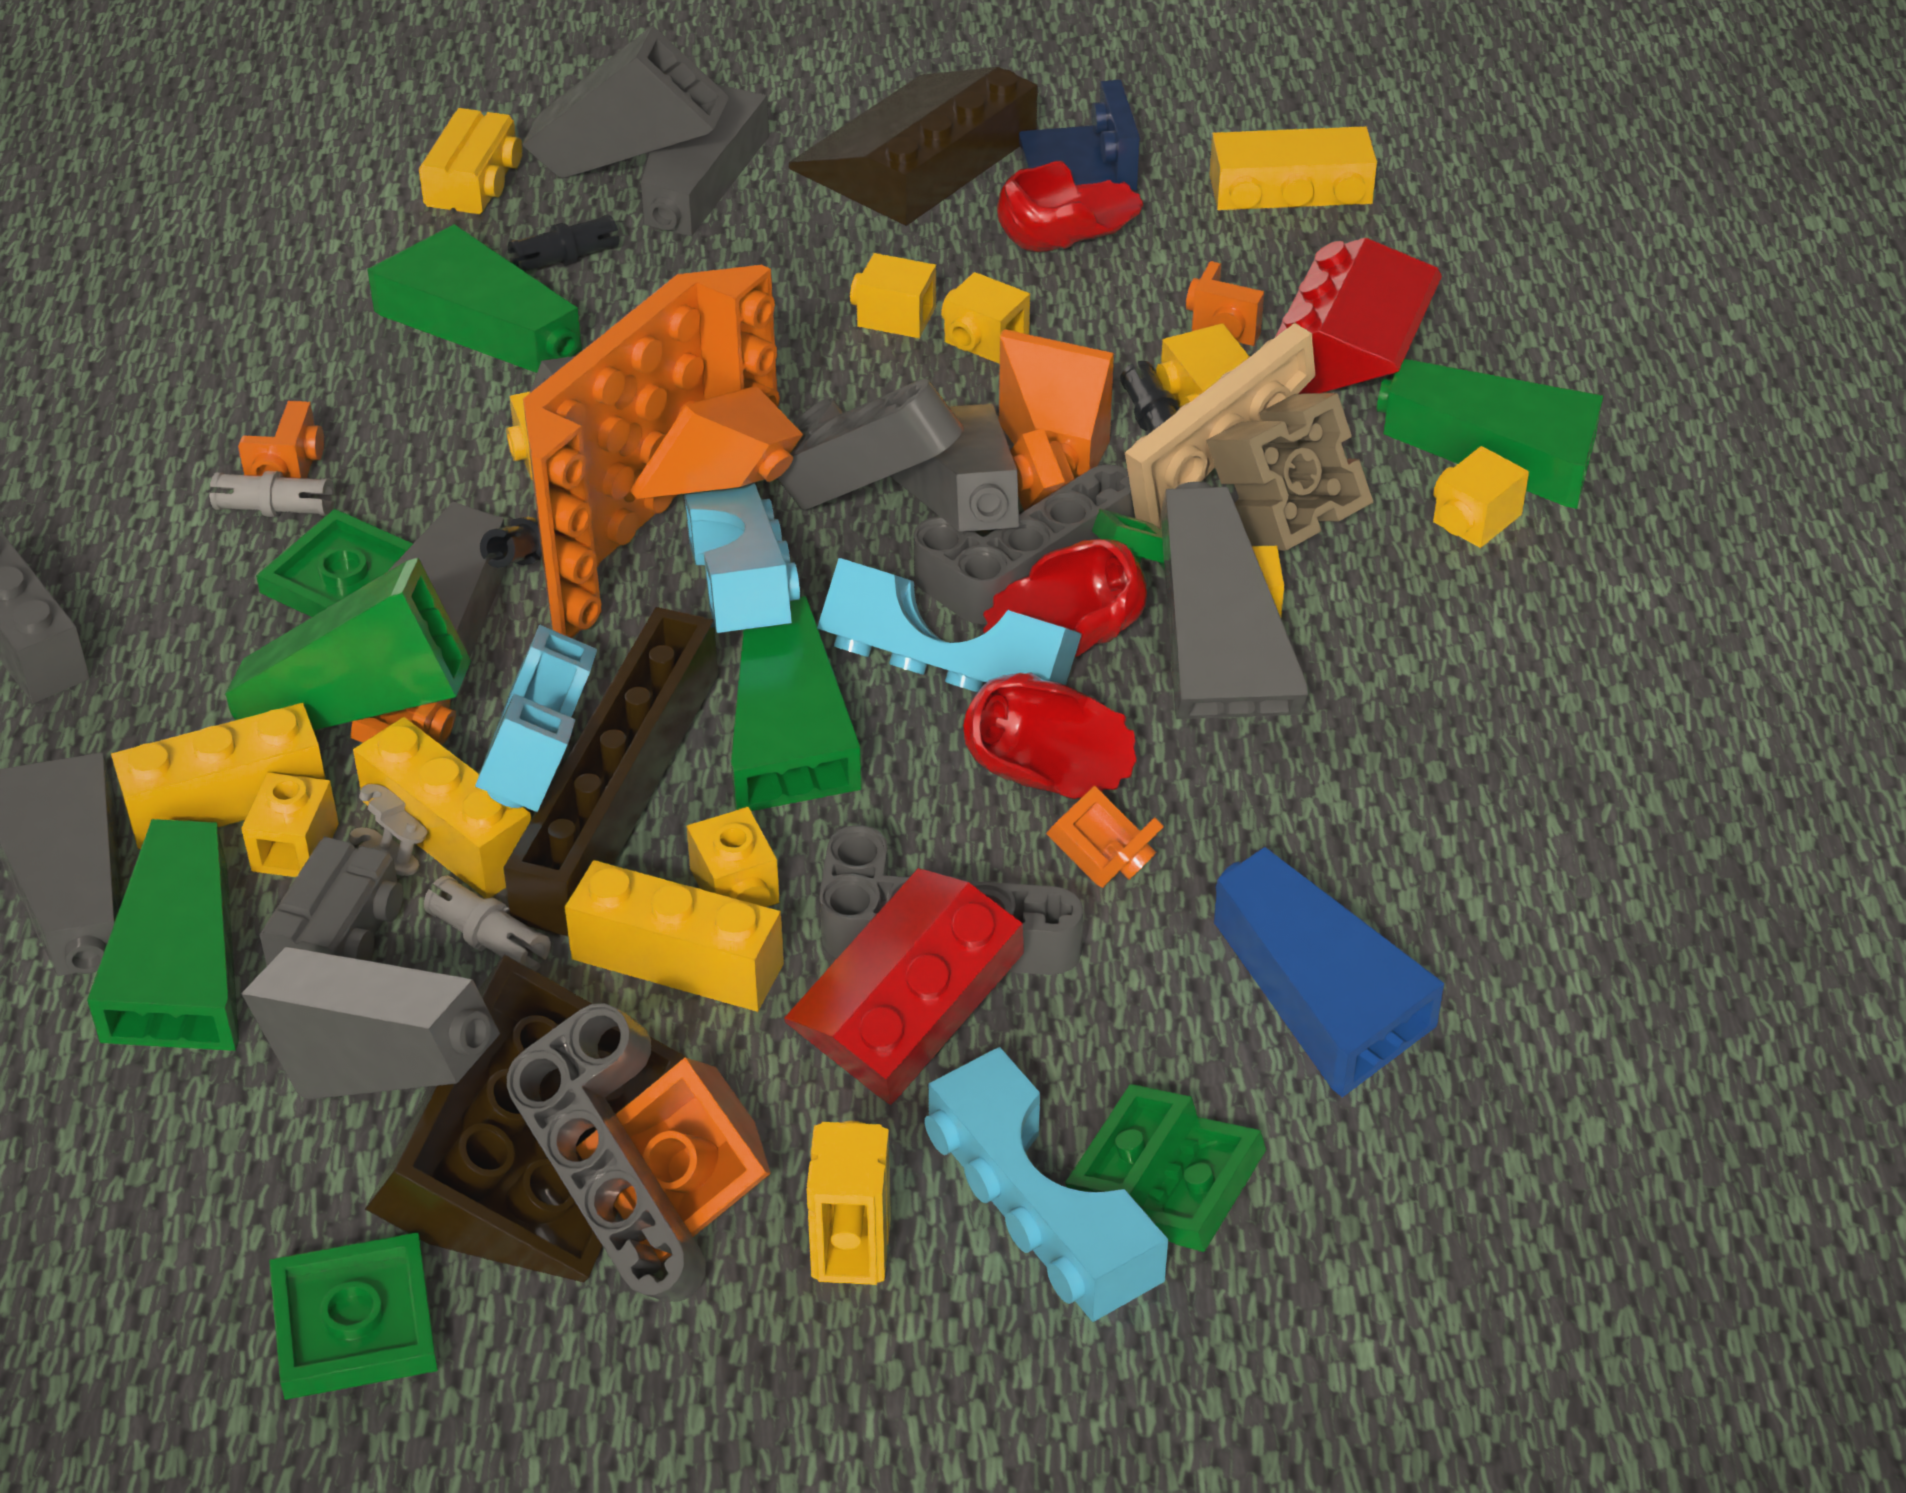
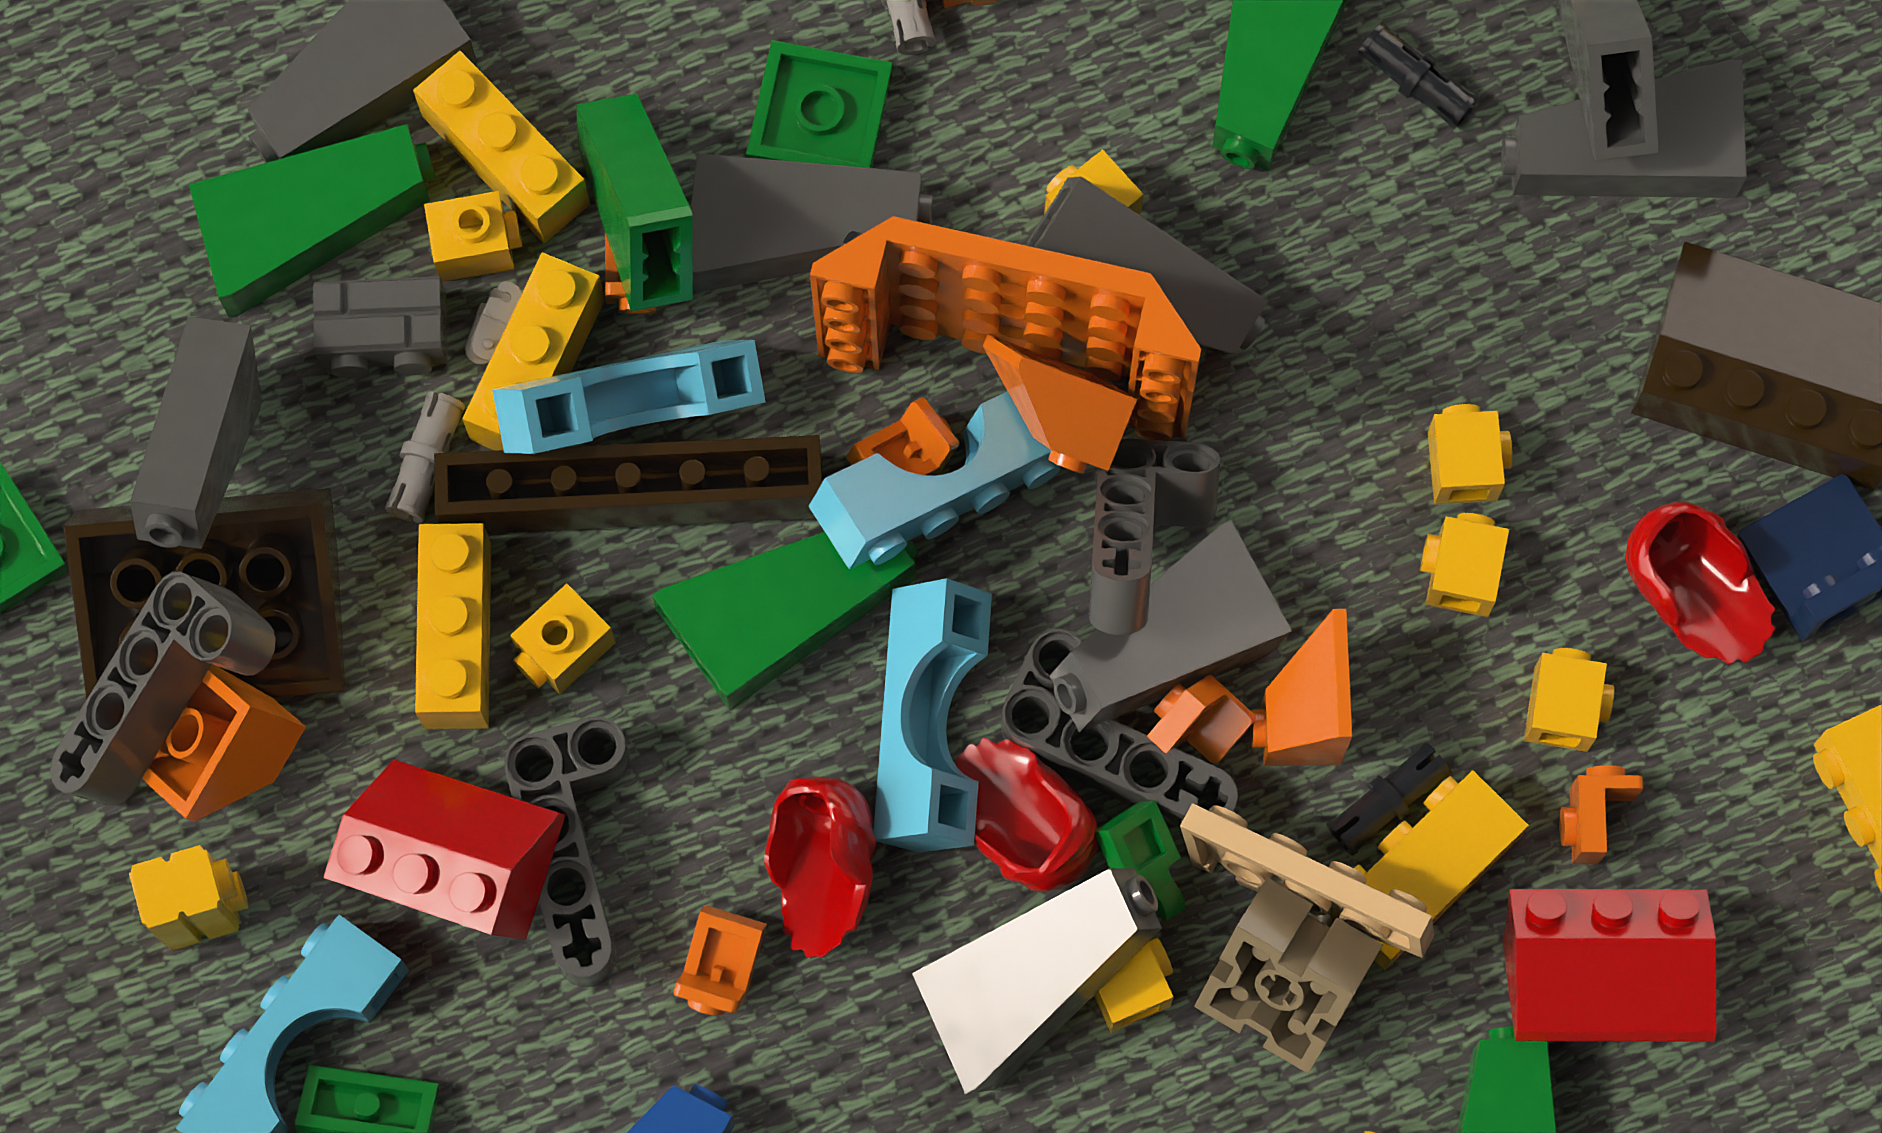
camera: 70 degrees right, 30 degrees up
(684, 582) = (915, 443): none -> orange bracket
(1125, 298) = (1568, 700): none -> yellow brick

